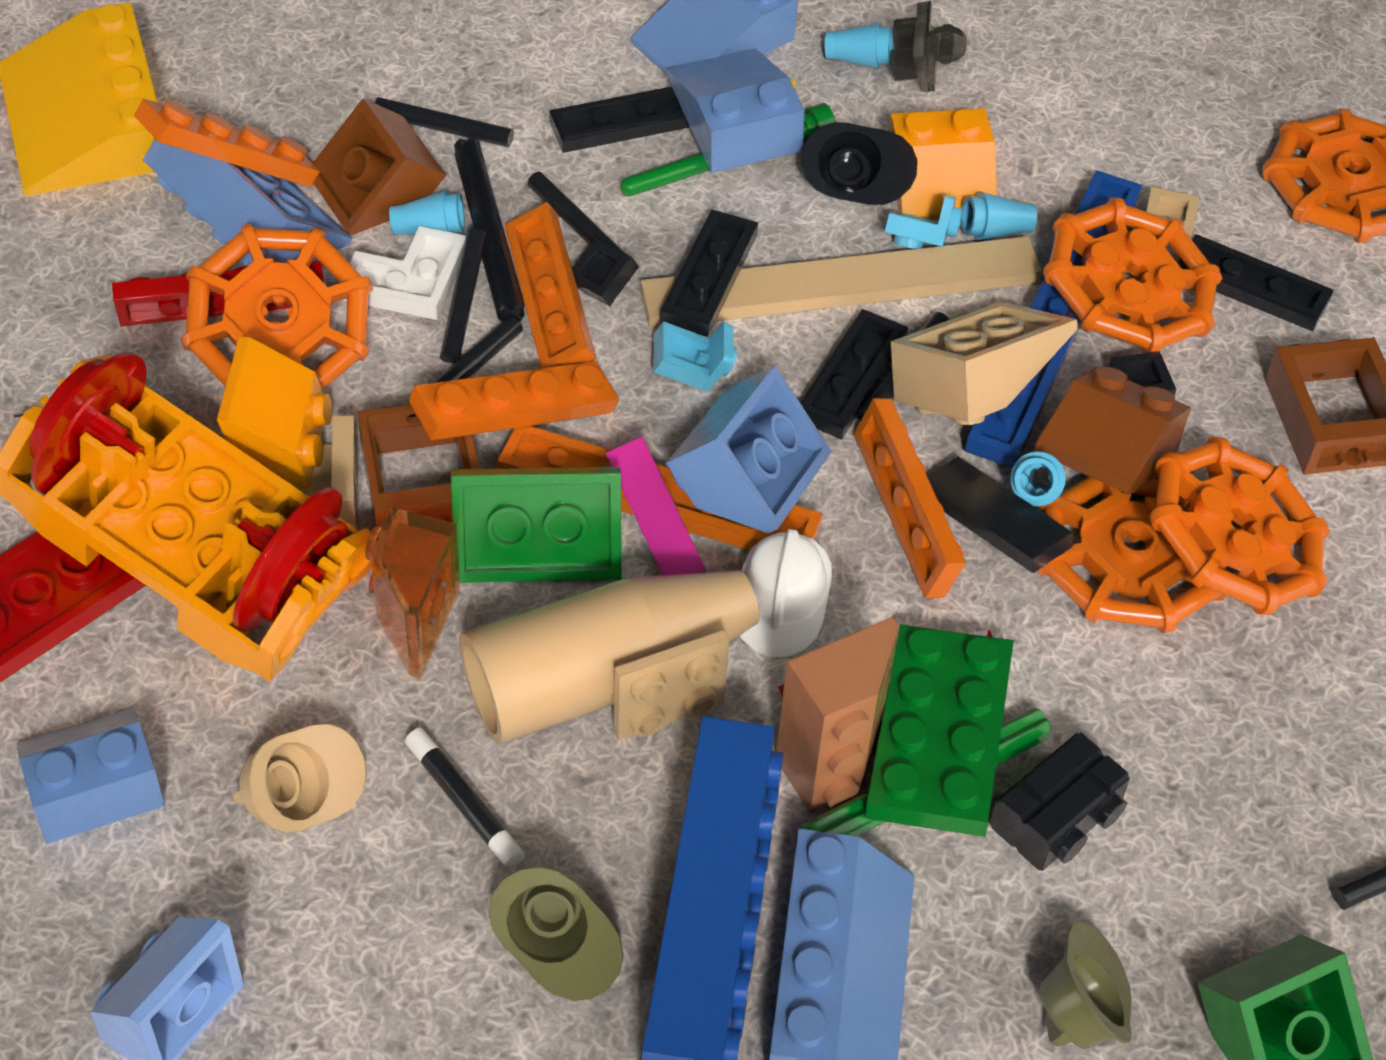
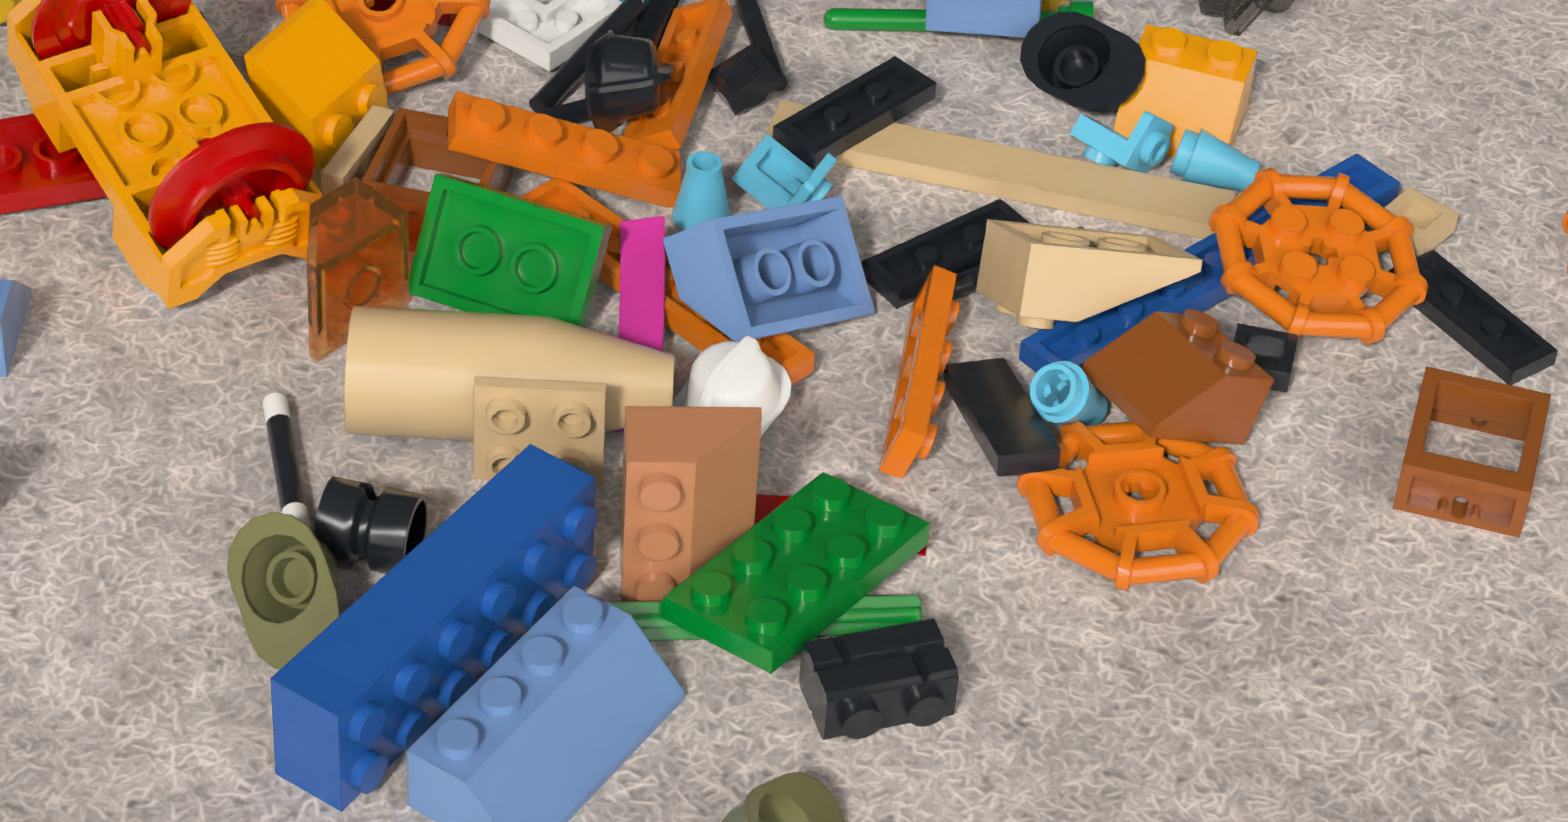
camera: 25 degrees right, 10 degrees down
(302, 778) = (140, 386): tan piece -> none
(533, 311) = (623, 79): none -> black piece
(584, 832) = (370, 526): none -> black wheel
(645, 403) = (701, 192): none -> medium azure cone
(1262, 547) = (1278, 489): orange plate -> none

